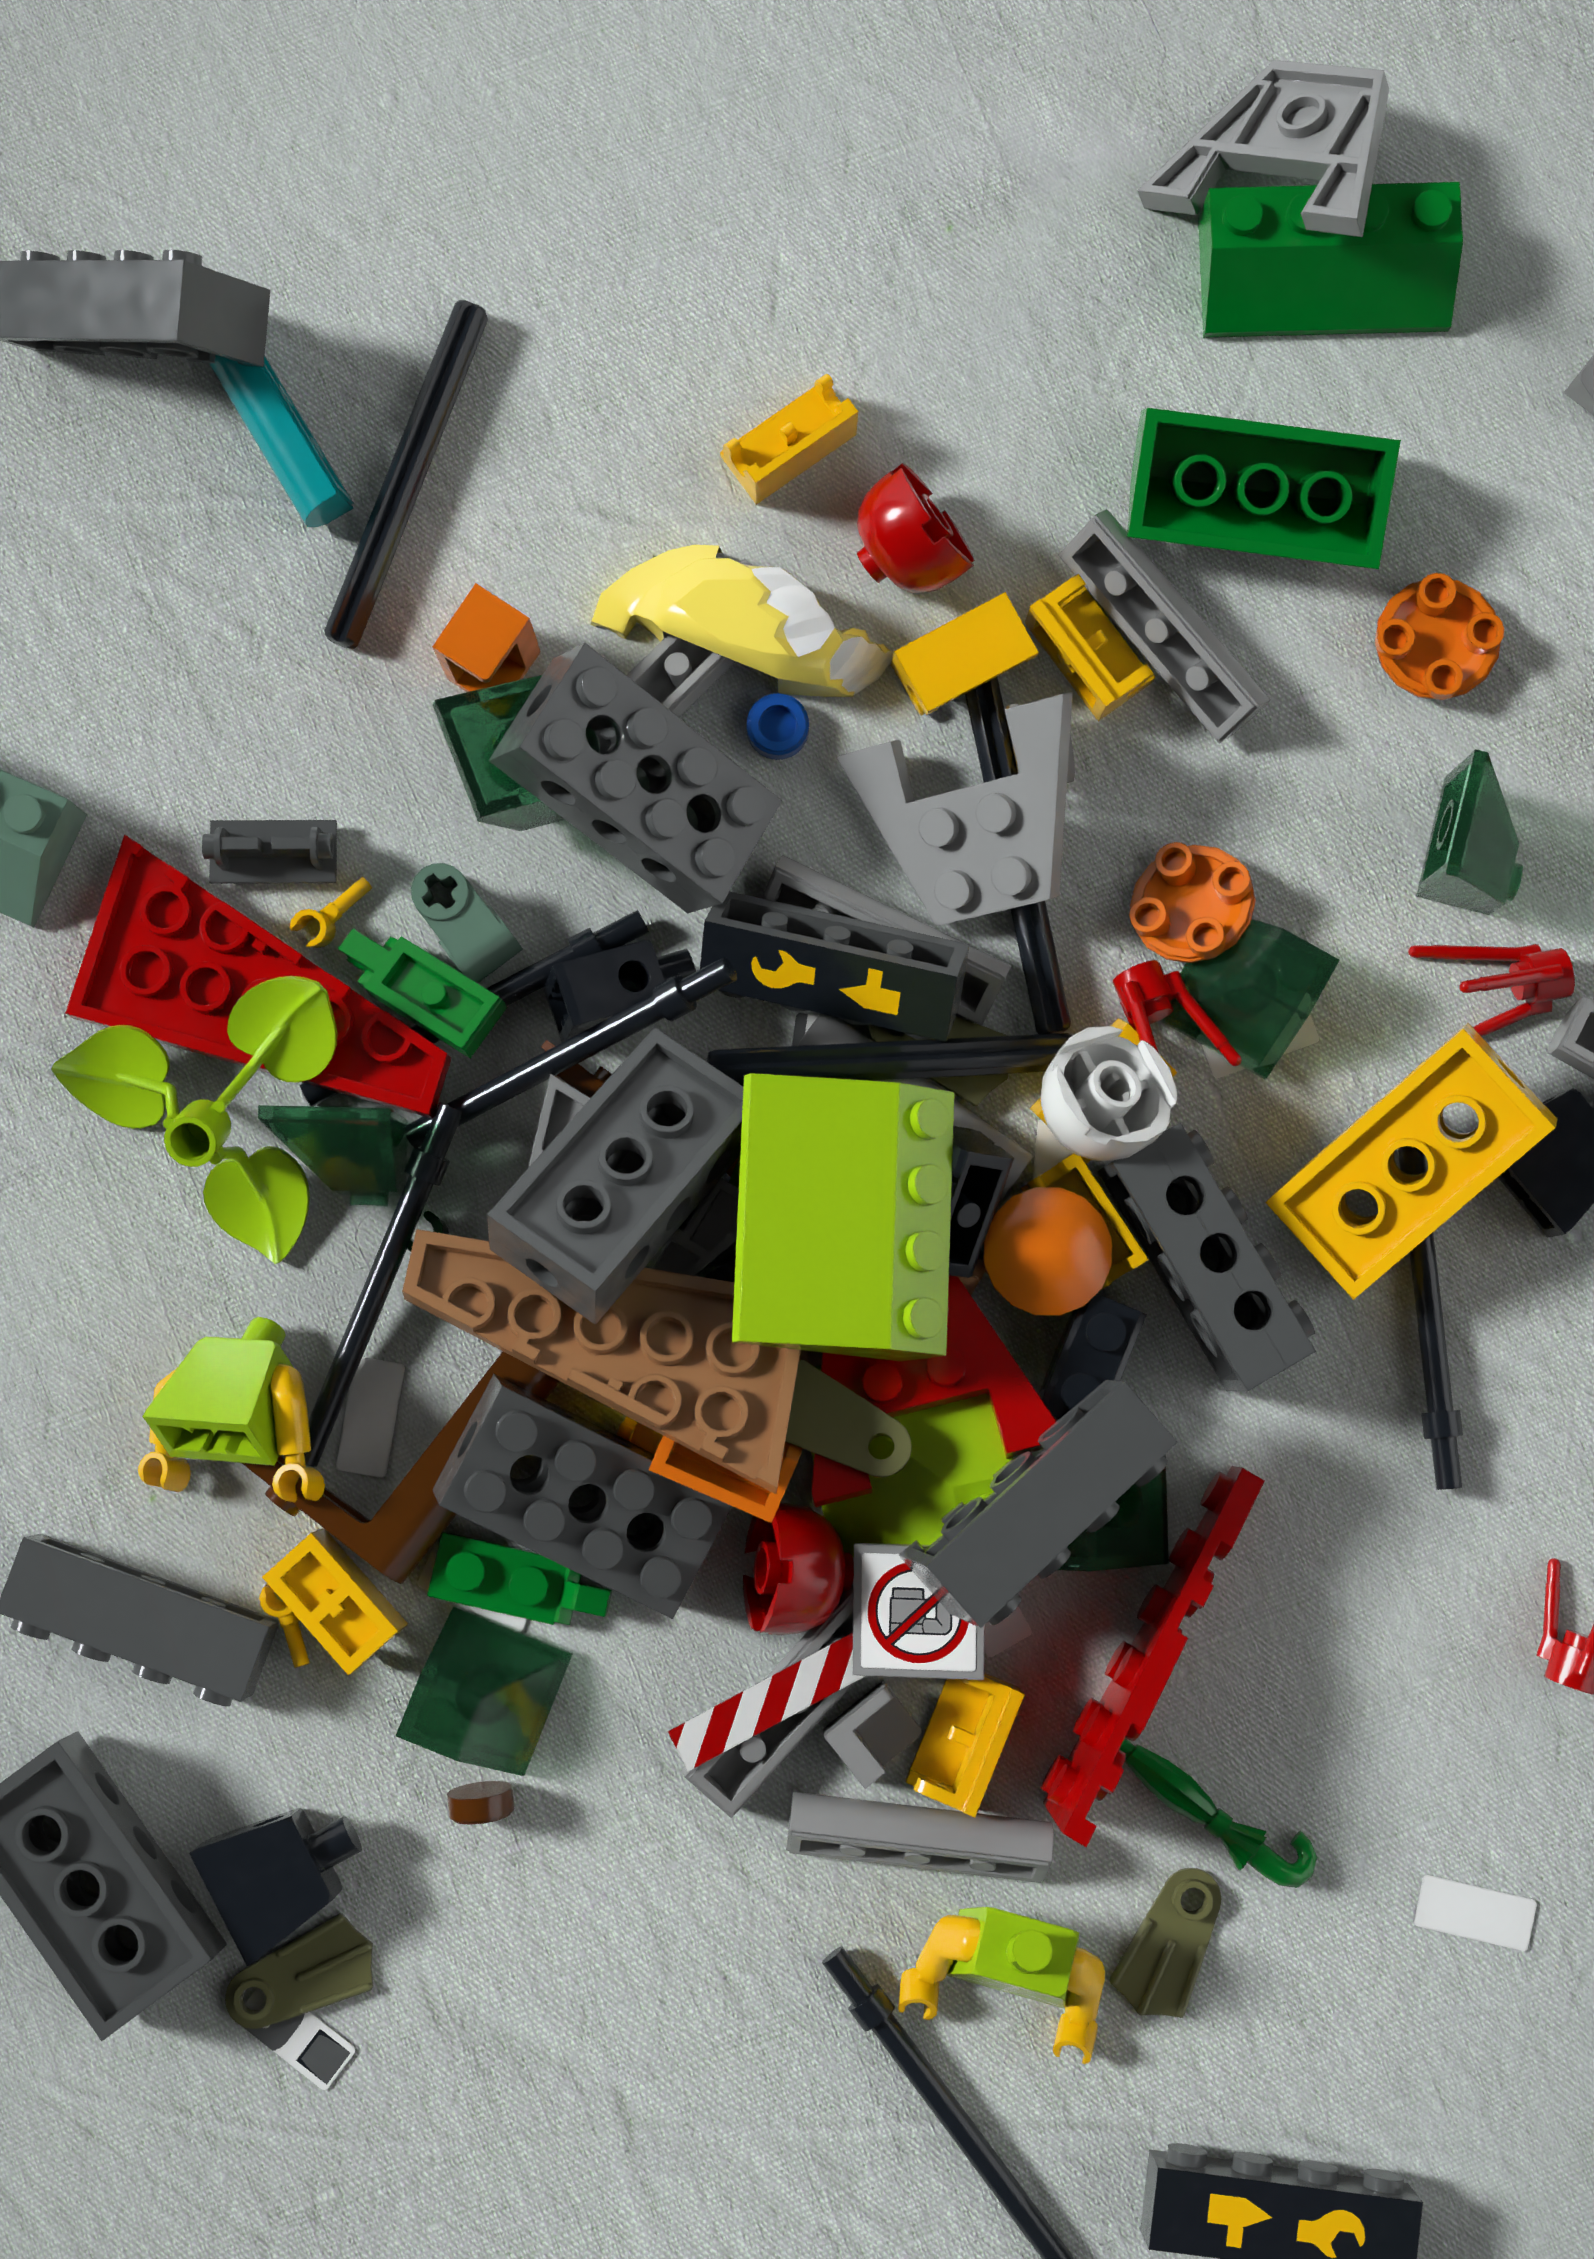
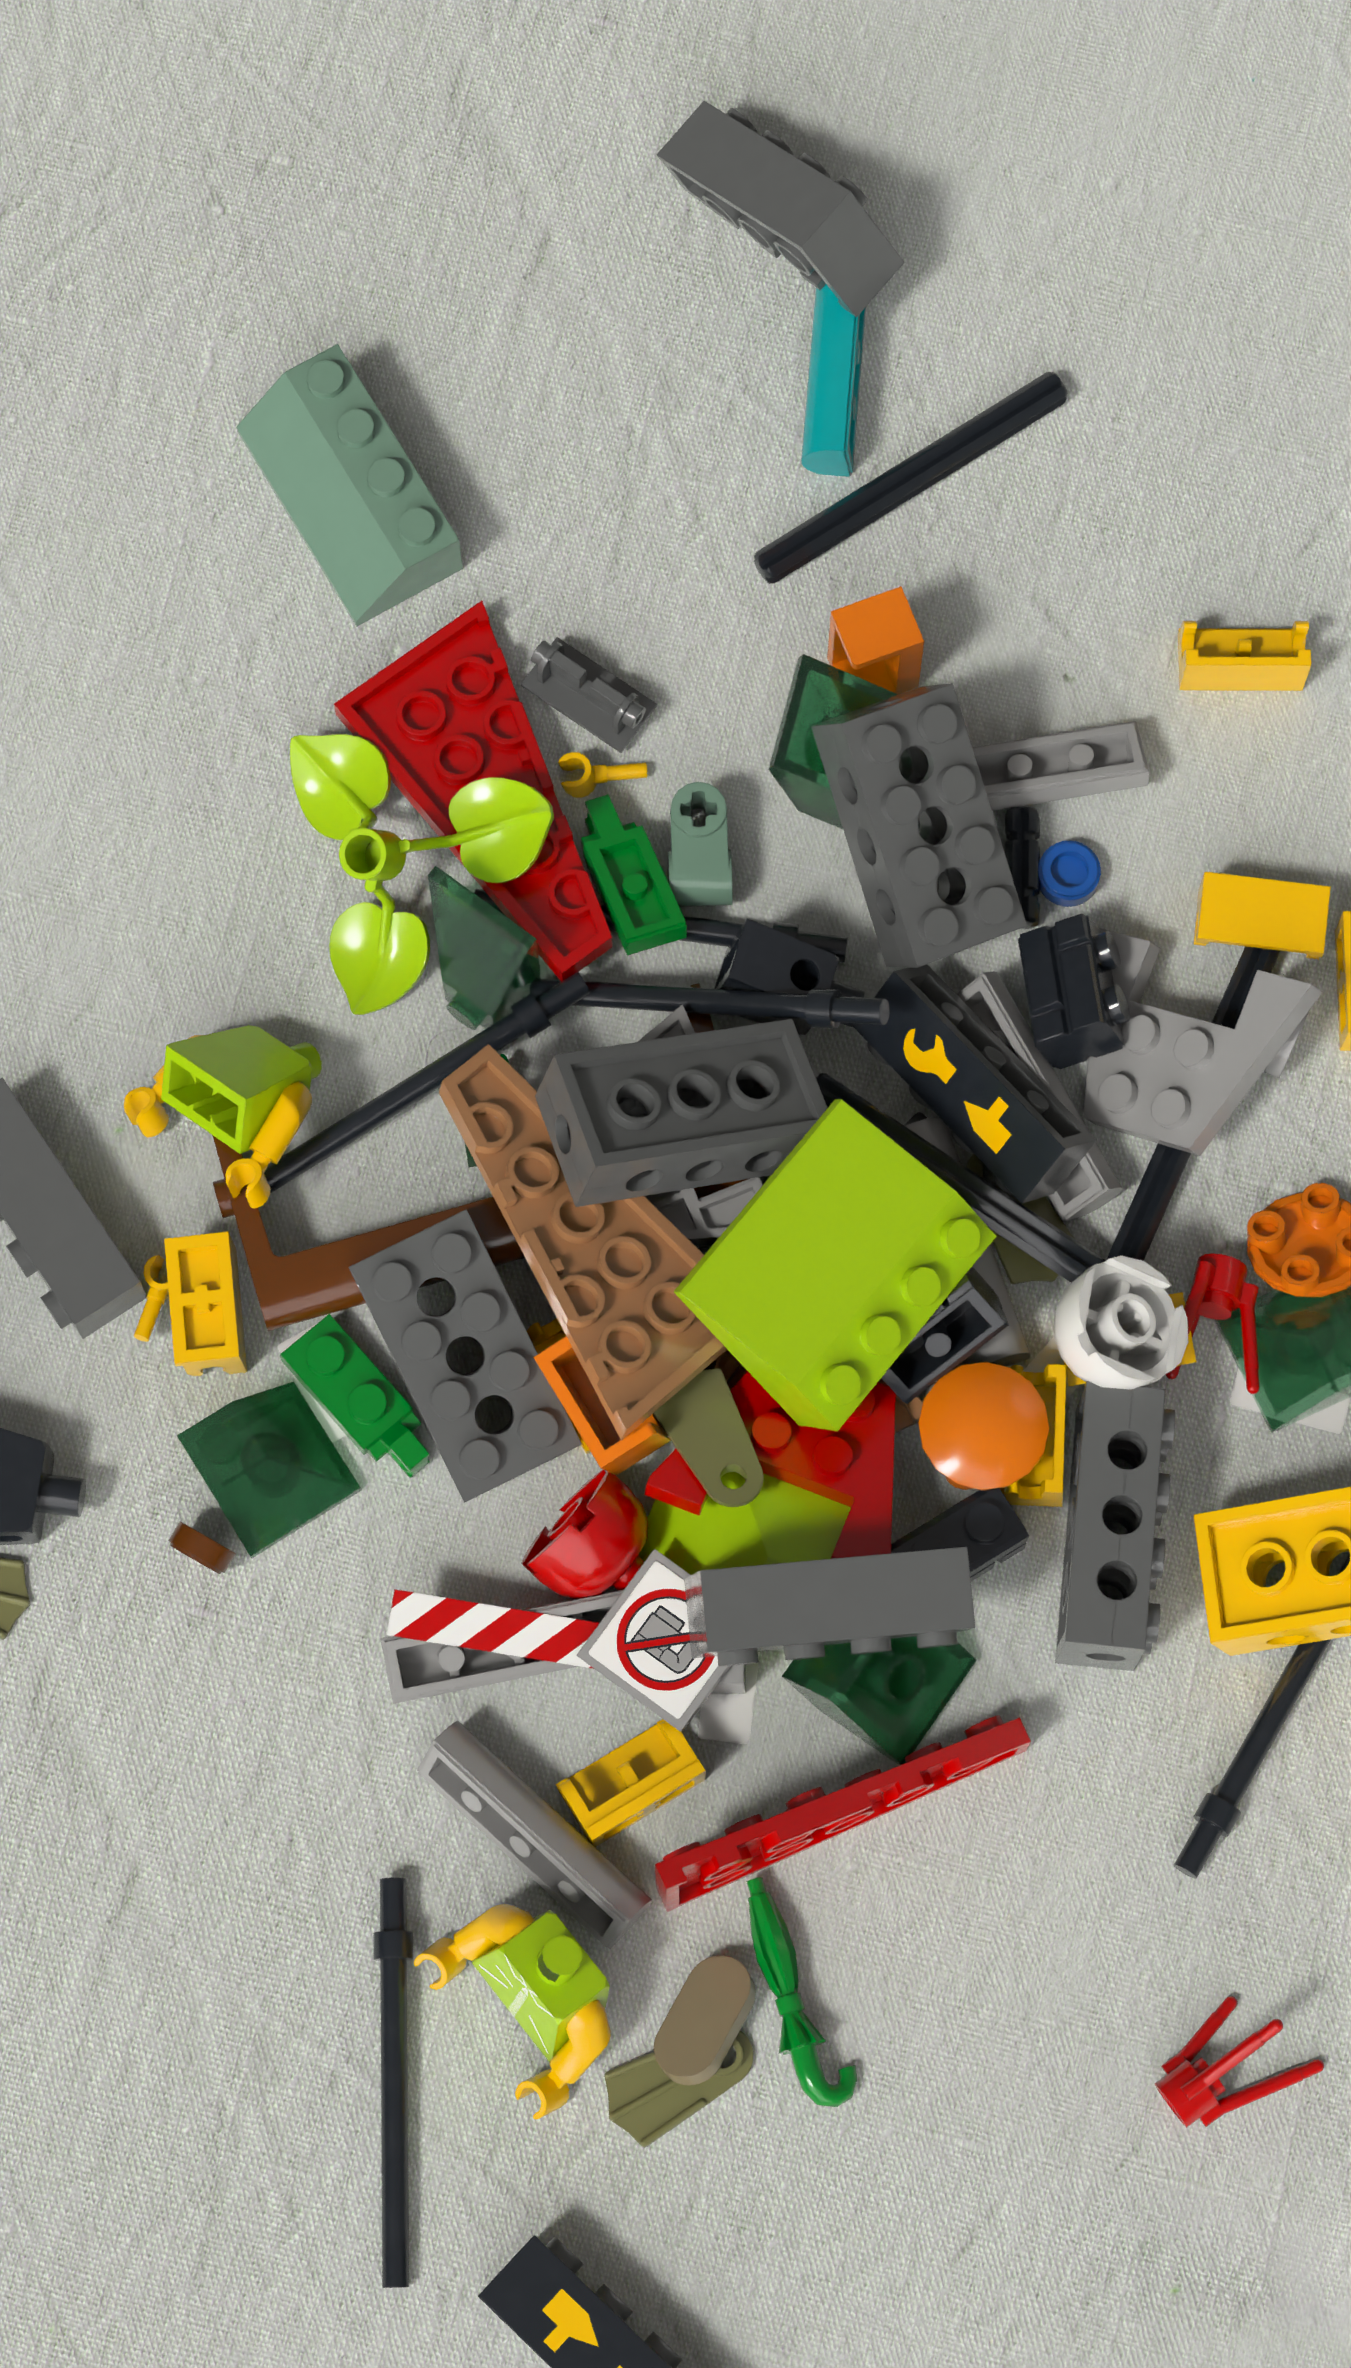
camera: 40 degrees right, 10 degrees down
(370, 1418) = (338, 1188): white sticker -> none
(733, 741) = (1023, 858): none -> black axle
(745, 615) = (1107, 769): light yellow animal -> none
(857, 828) = (1073, 990): none -> black brick
(872, 1733) = (558, 1722): light grey panel -> none
(909, 535) = (1285, 792): red cylinder -> none
(1161, 1887) = (704, 2020): none -> dark tan tile
(1475, 1912) = (954, 2244): white sticker -> none

